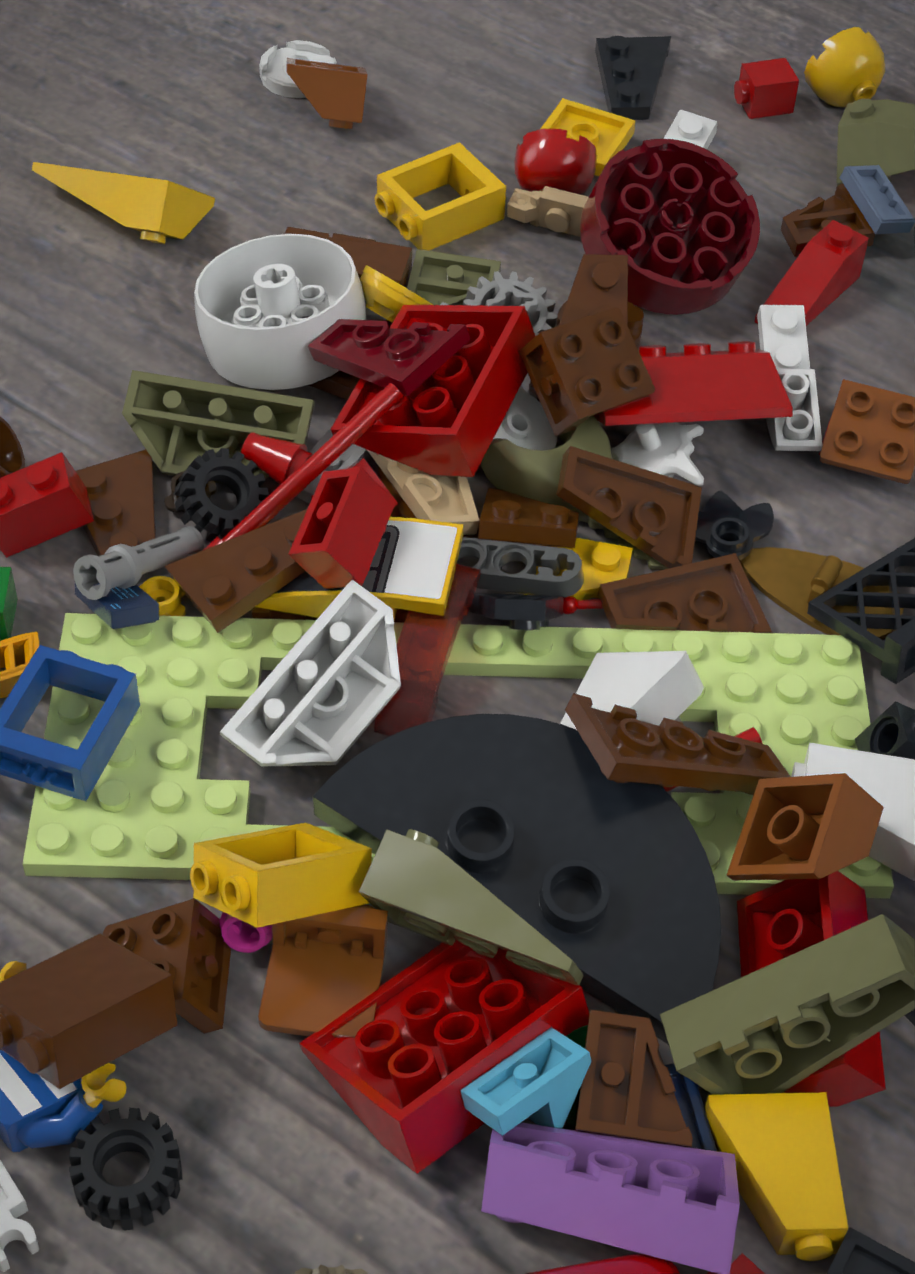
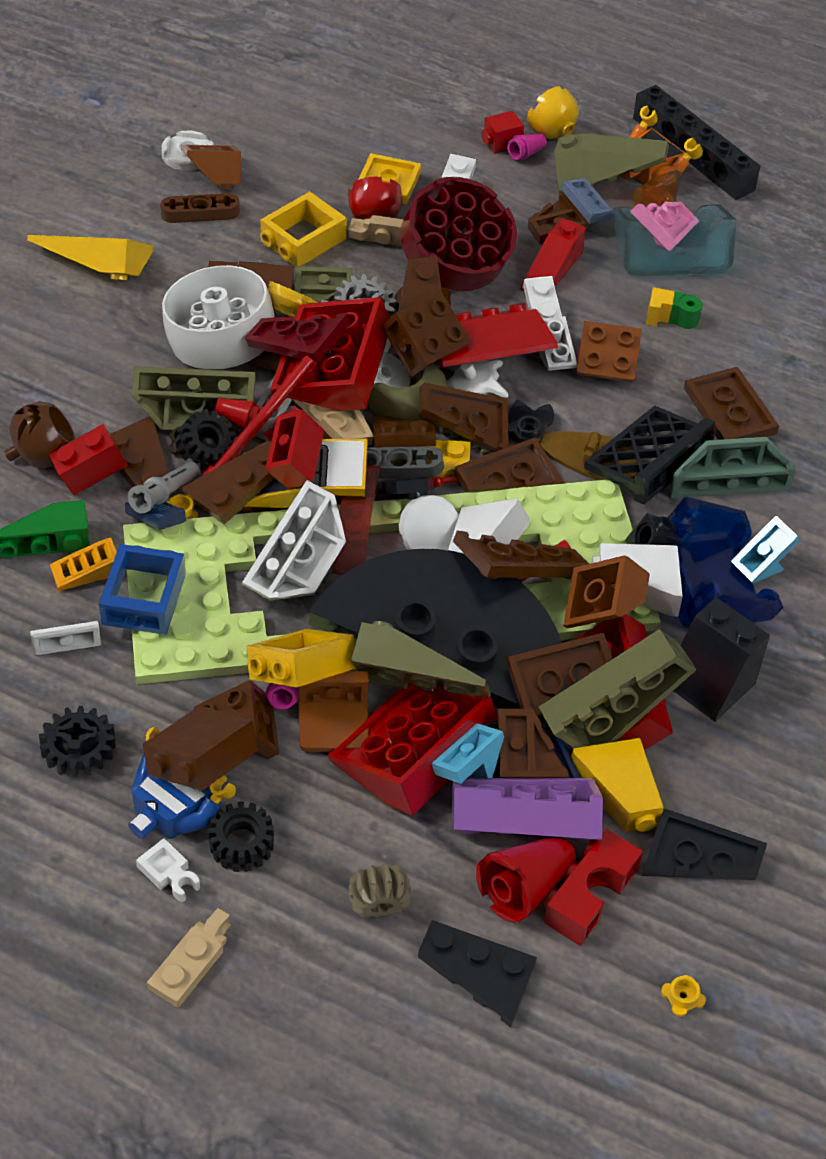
camera: 10 degrees left, 0 degrees up
(270, 151) = (181, 208): none -> reddish brown beam
(537, 673) = (428, 523): none -> white tile
(631, 72) = (411, 130): black wing -> none
(698, 951) = (552, 669): none -> reddish brown wing
(797, 111) = (524, 146): none -> dark pink cone

